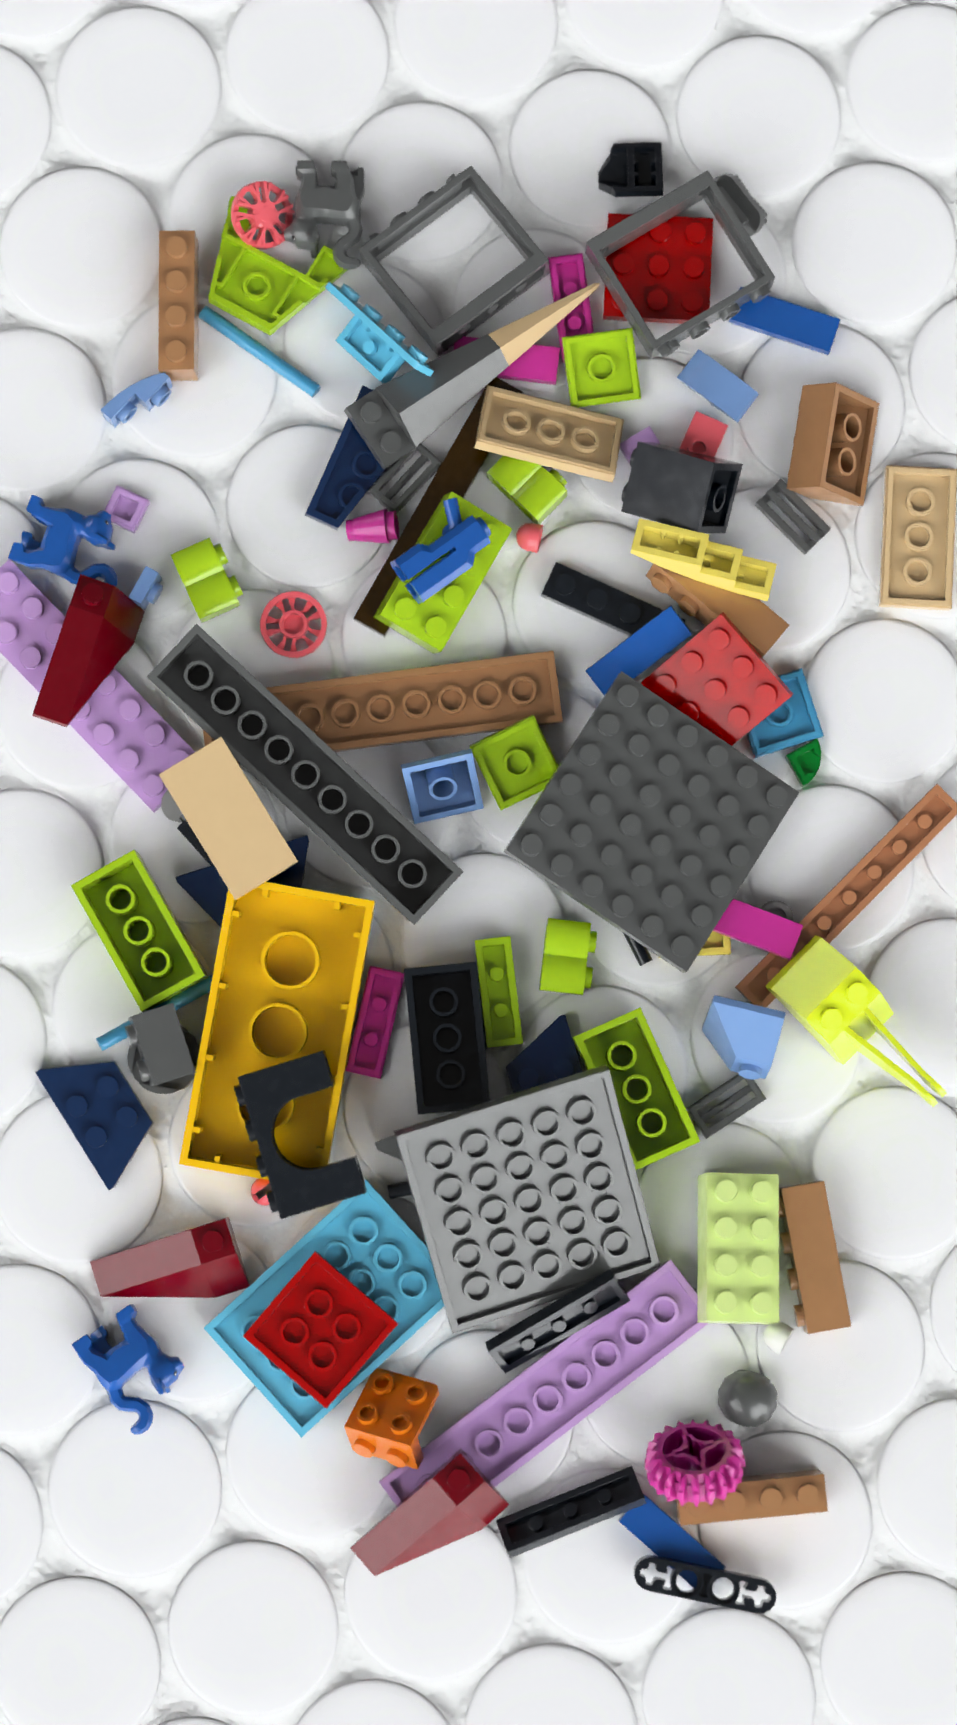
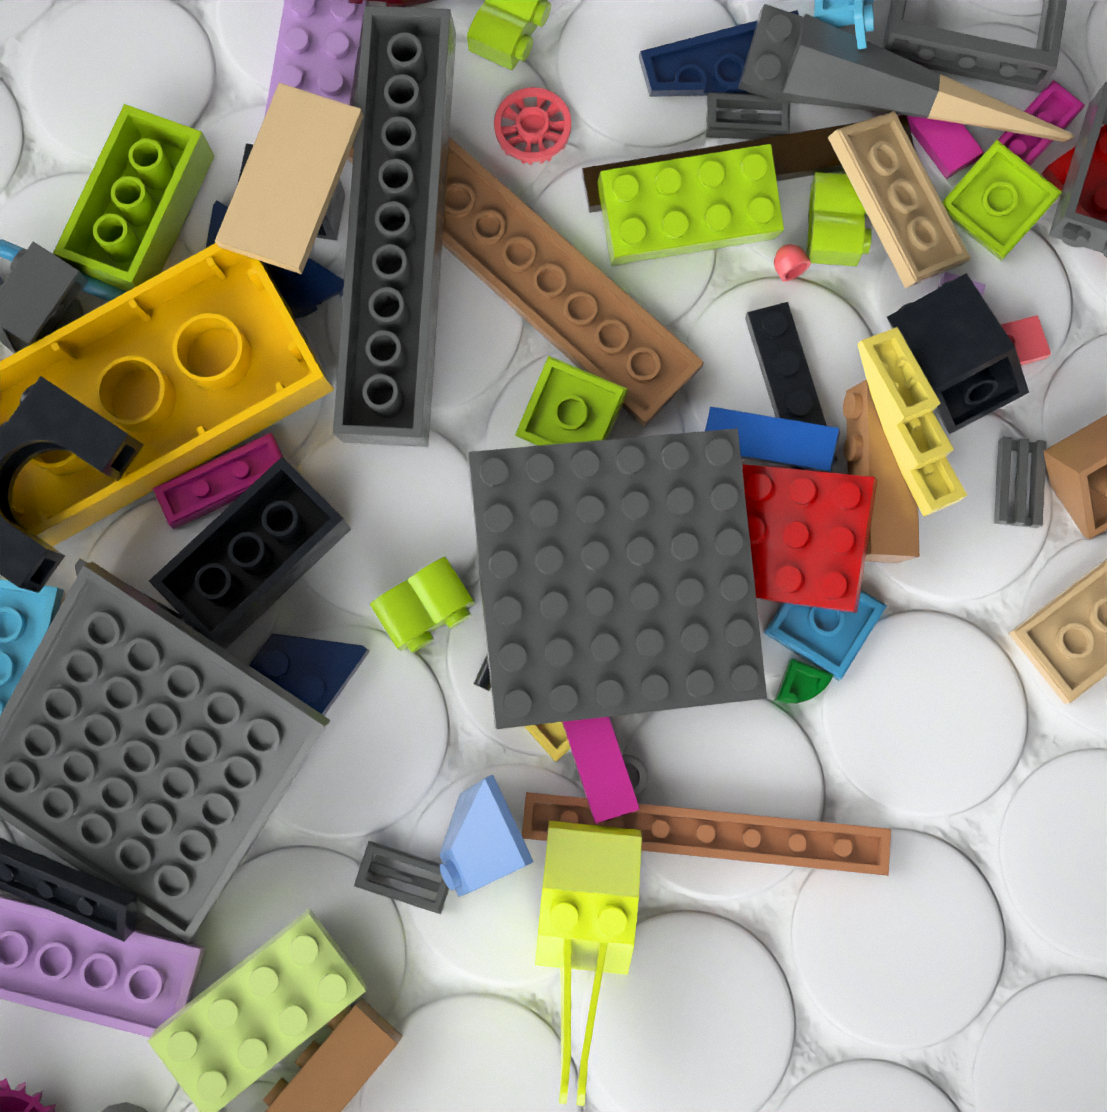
camera: 50 degrees right, 5 degrees down
(374, 527) = (680, 122): dark pink cone -> none
(442, 786) = (493, 361): medium blue slope -> none
(458, 537) = (702, 178): blue piece -> none
(498, 992) = (339, 569): lime plate -> none
(644, 1088) = (344, 778): lime brick -> none
(718, 385) = (1079, 315): medium blue slope -> none

